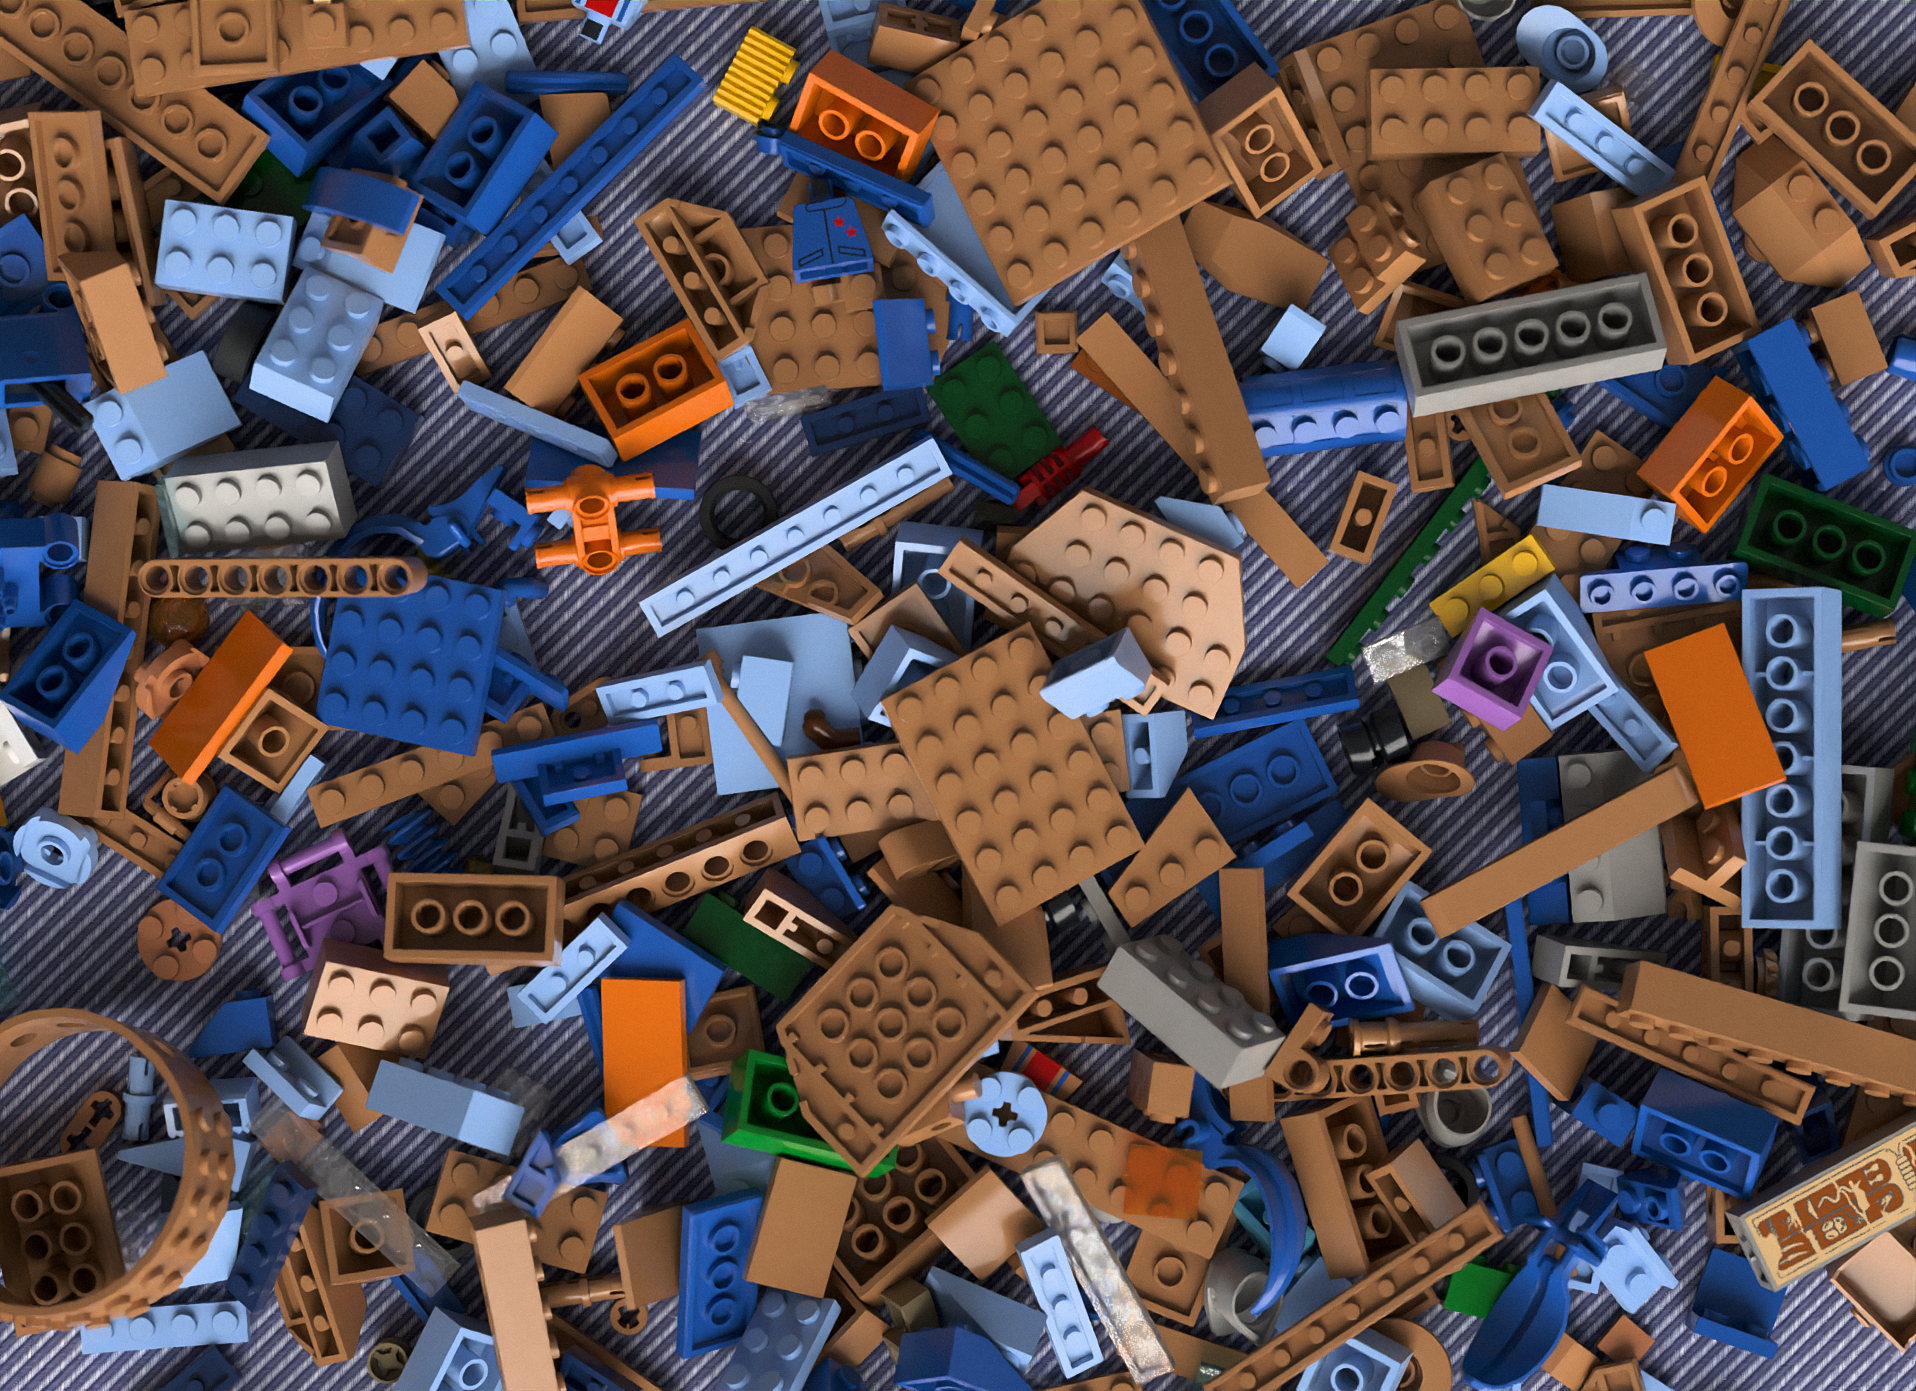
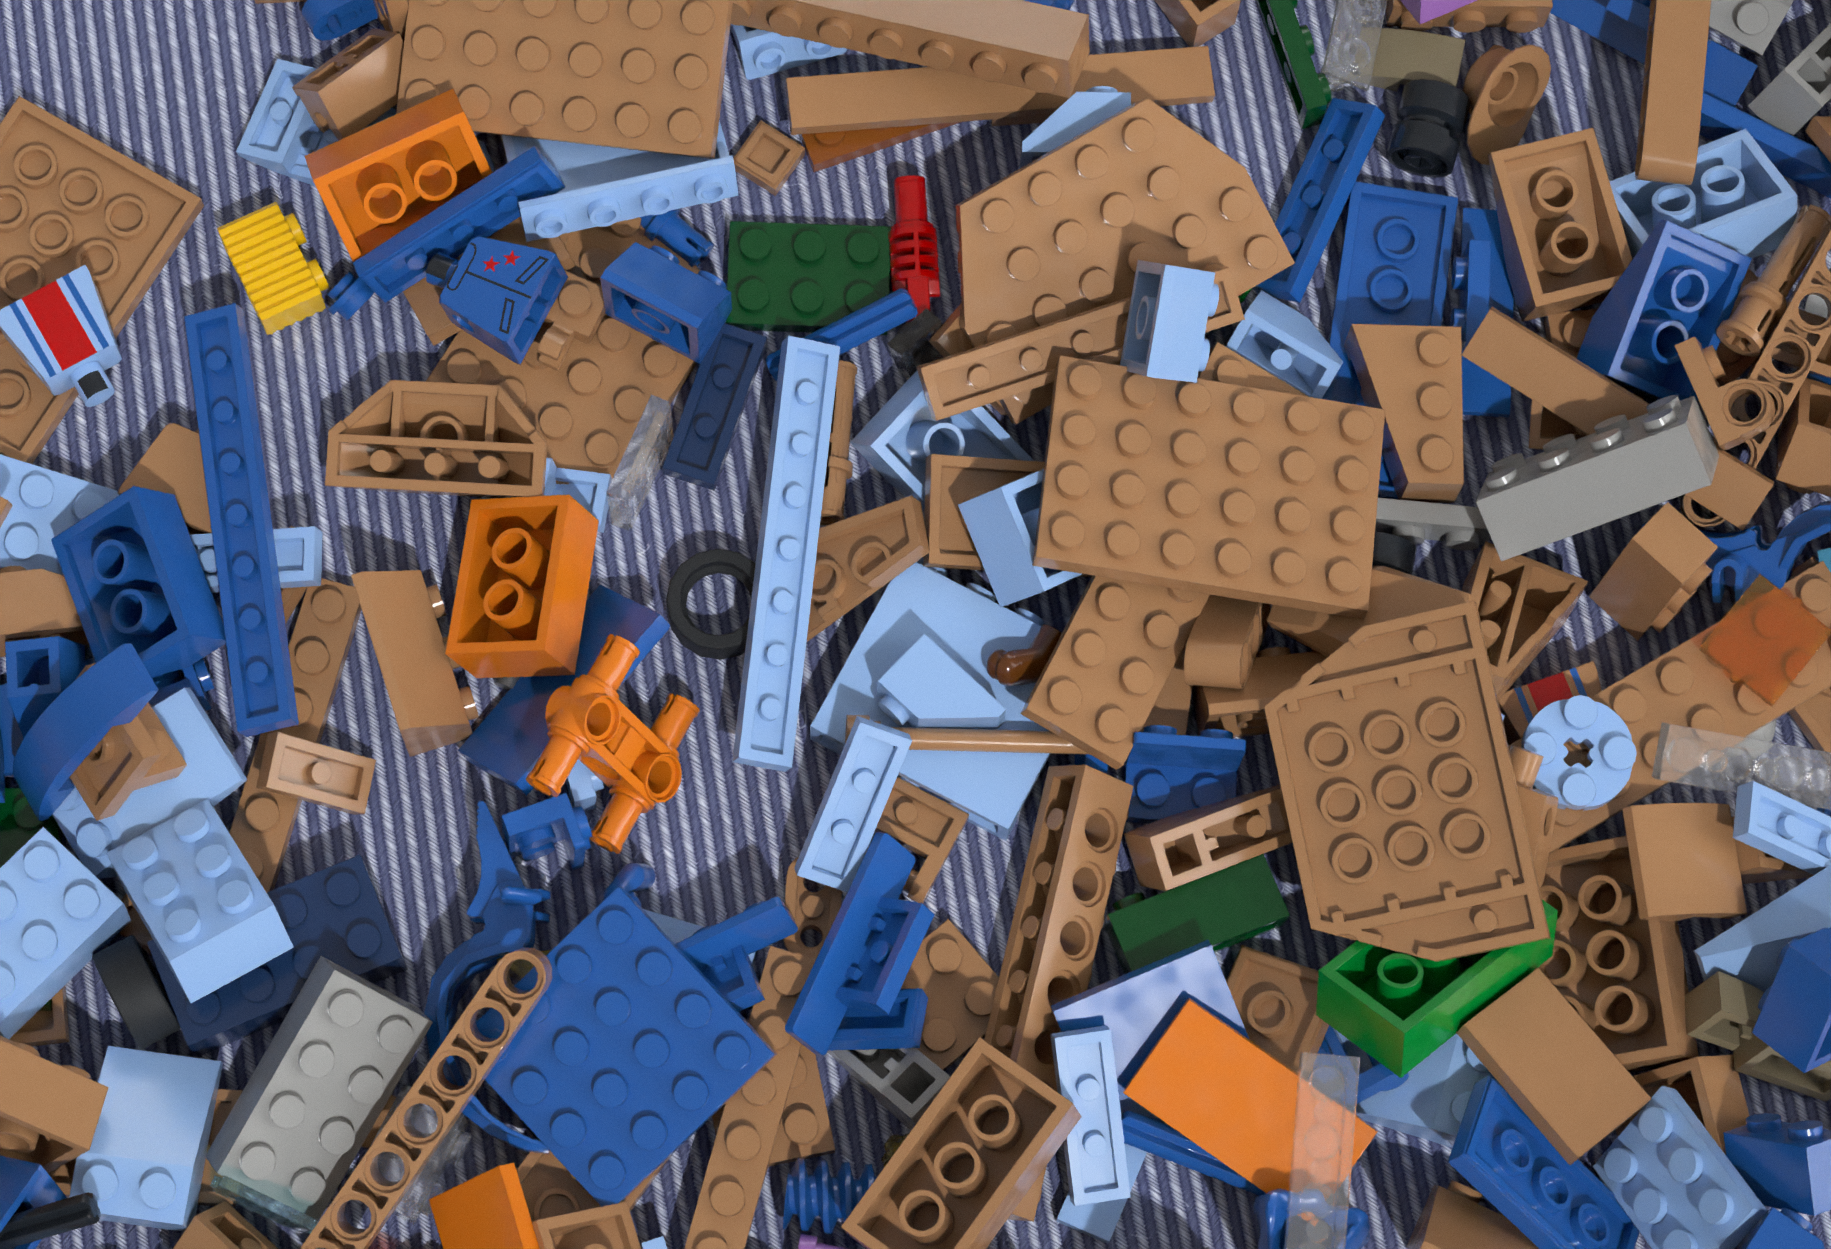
camera: 65 degrees left, 15 degrees down
(537, 424) = (462, 737): light blue tile -> none
(565, 82) = (113, 471): blue axle -> none

